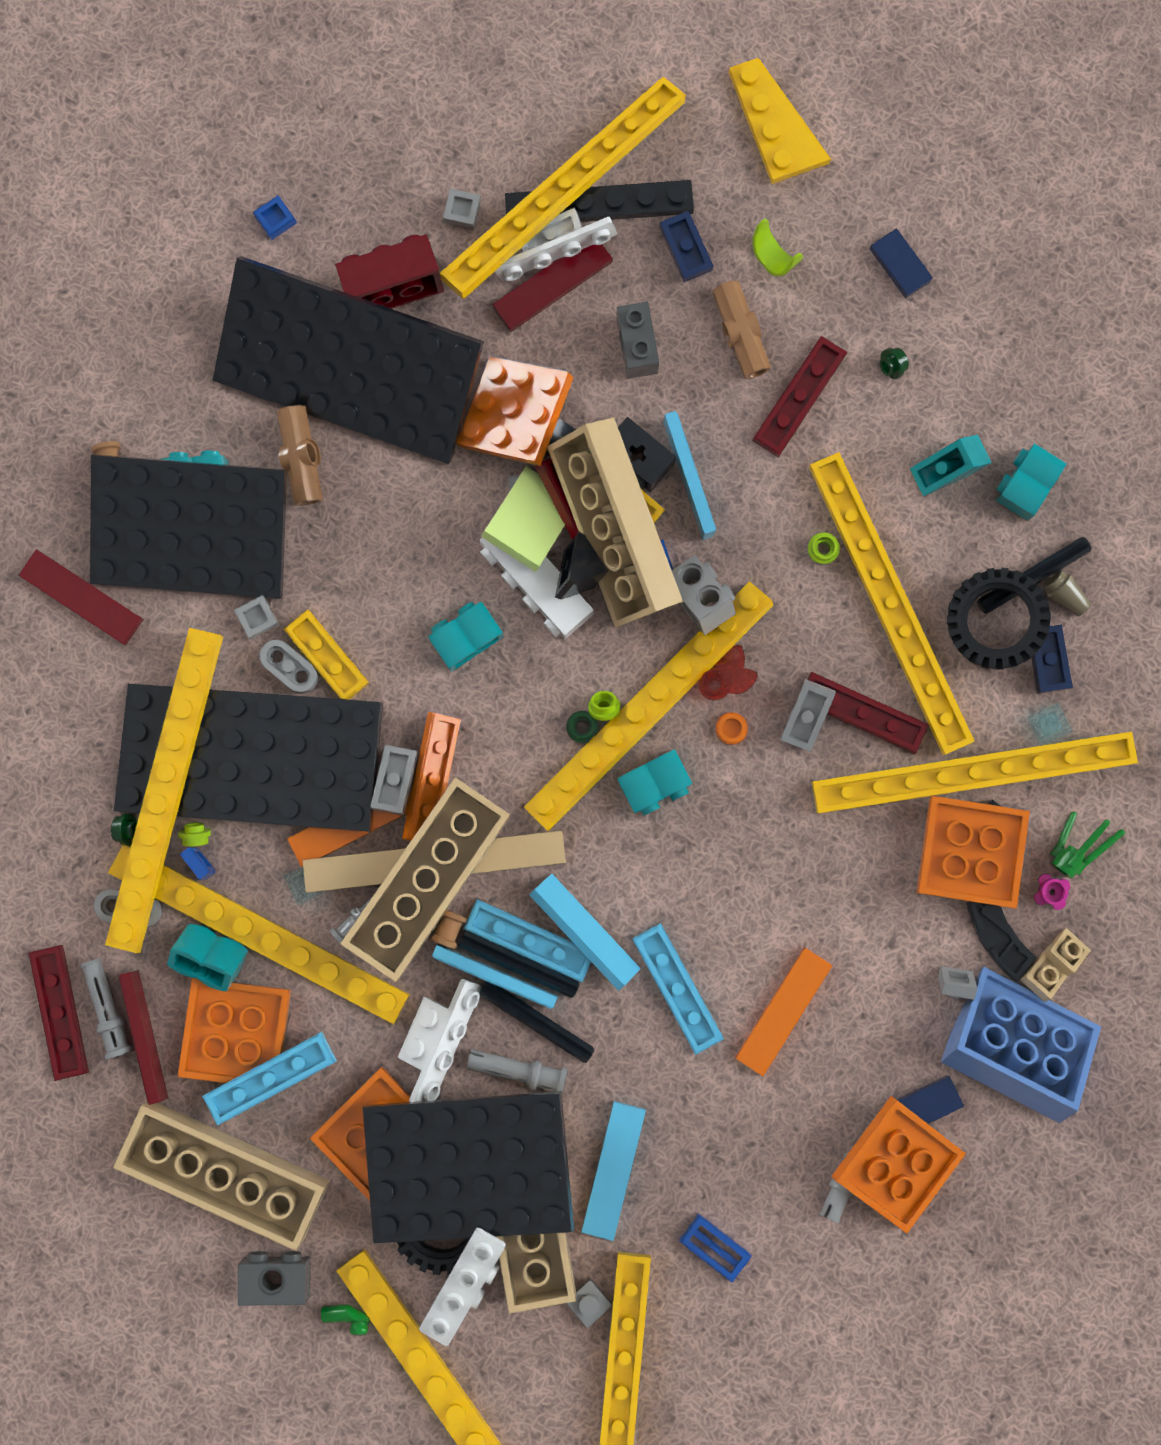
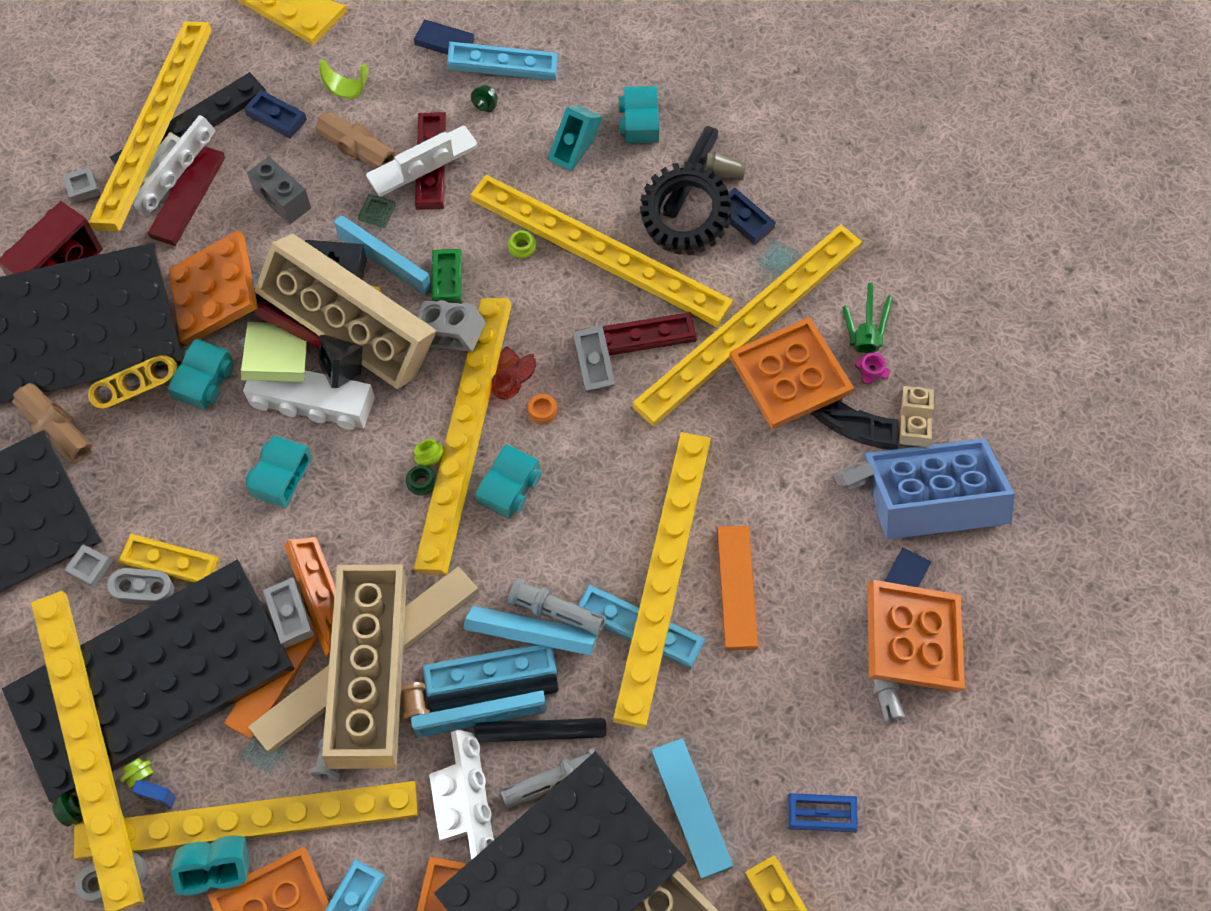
camera: 35 degrees left, 20 degrees down
(378, 468) = (118, 382): none -> yellow beam
(455, 492) = (201, 374): none -> teal brick
(611, 915) = (543, 602): none -> light grey pin
(715, 419) = (376, 210): none -> clear green tile
(727, 961) = (662, 582): none -> yellow plate
(733, 536) = (447, 275): none -> green plate
(789, 397) = (421, 160): none -> white bracket
(939, 329) = (502, 61): none -> medium azure tile

